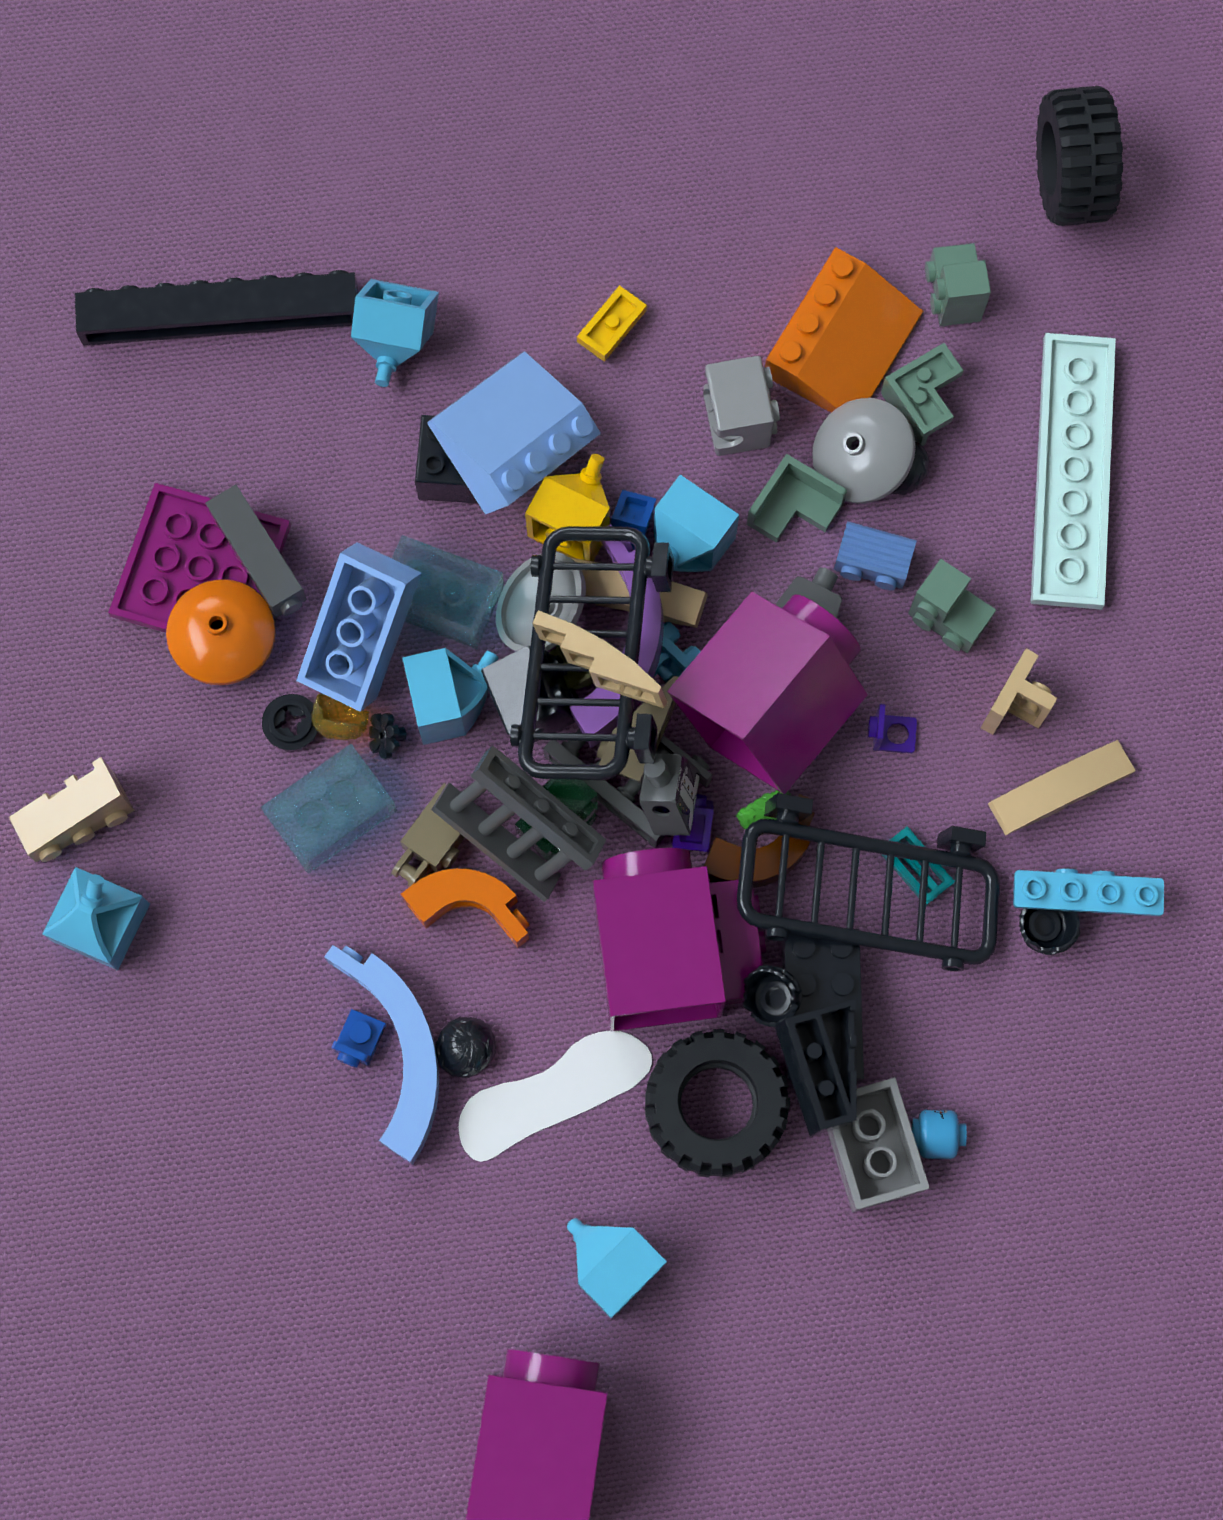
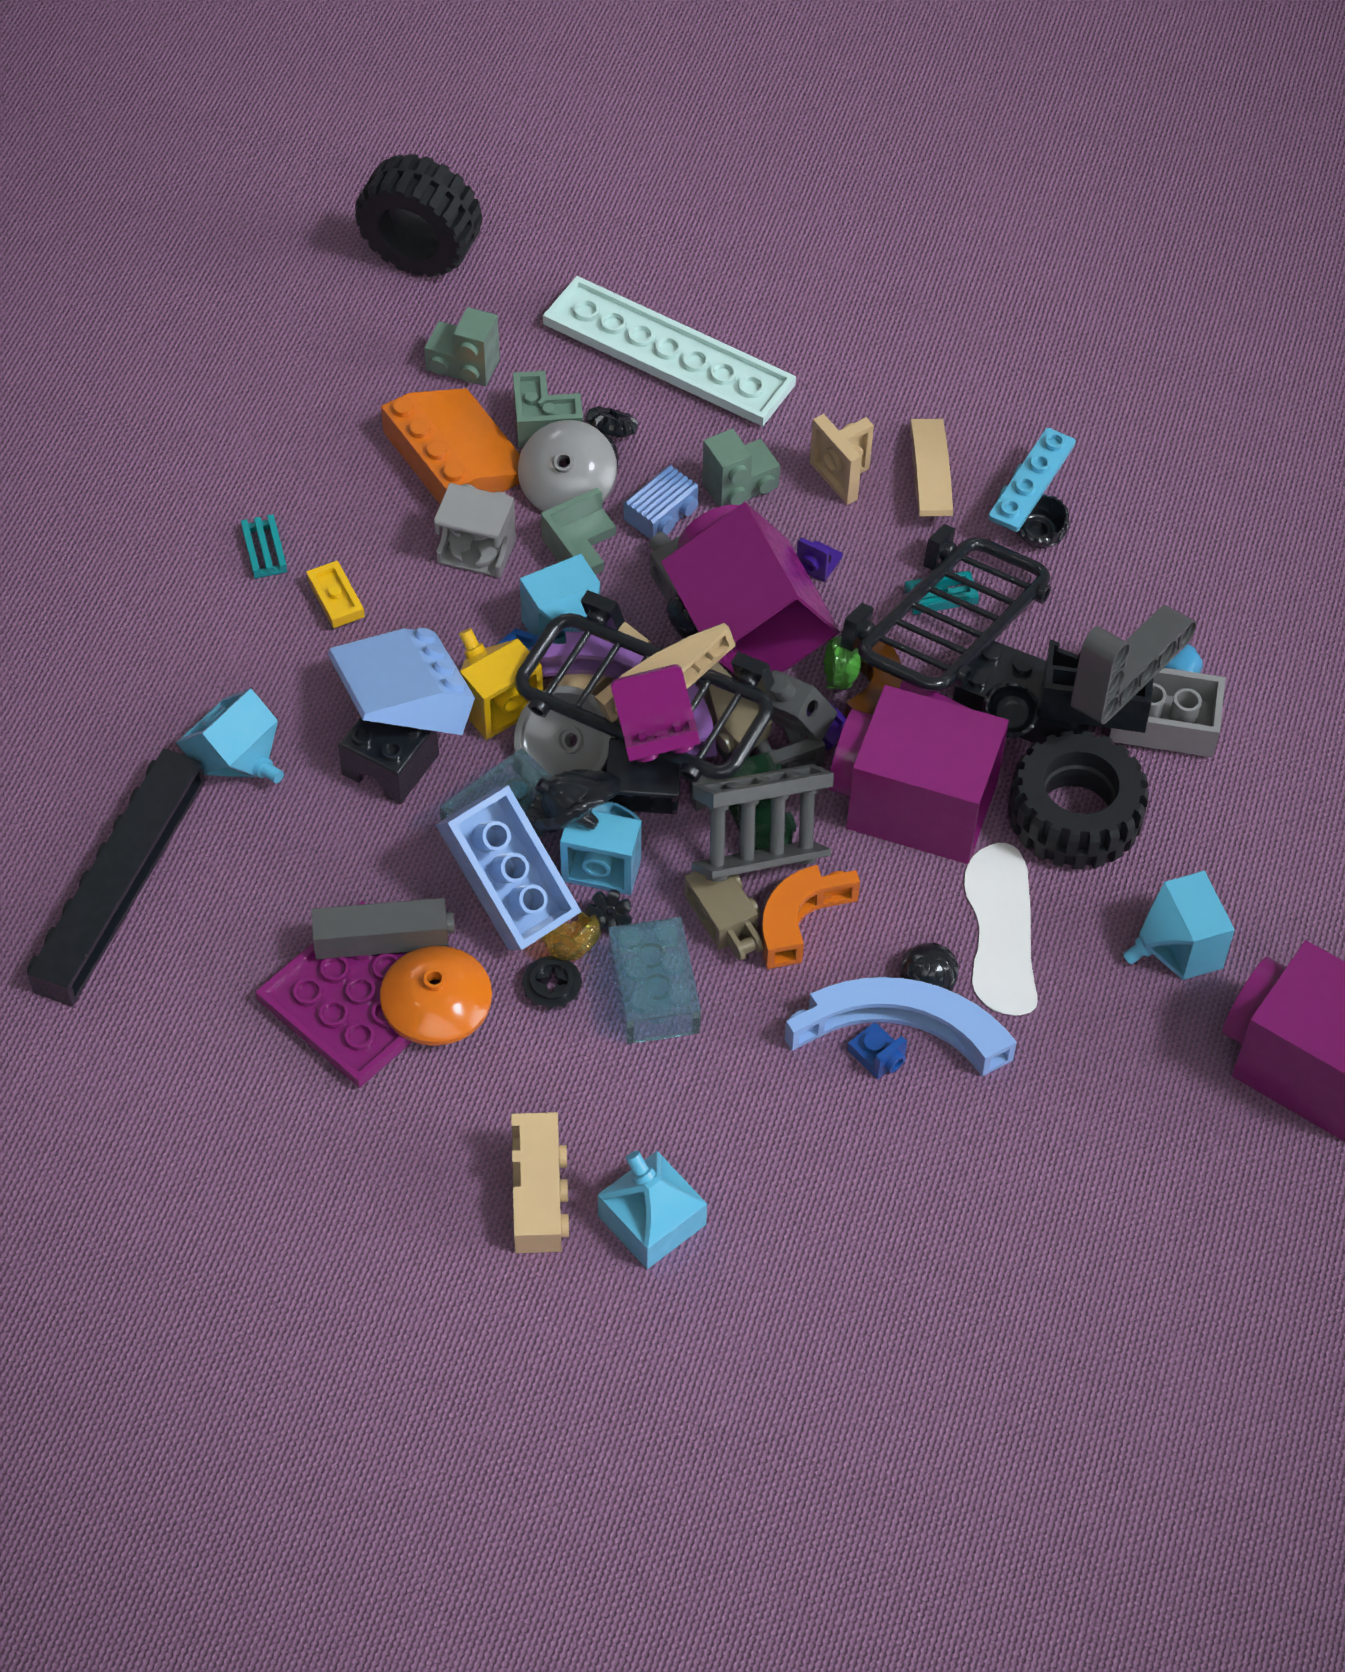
camera: 65 degrees left, 20 degrees down
(449, 645) = (570, 799): none -> black piece
(542, 677) = (655, 713): none -> magenta bracket
(657, 215) = (260, 526): none -> teal tile
(795, 1077) = (1117, 669): none -> dark grey beam
(937, 455) = (612, 421): none -> black gear

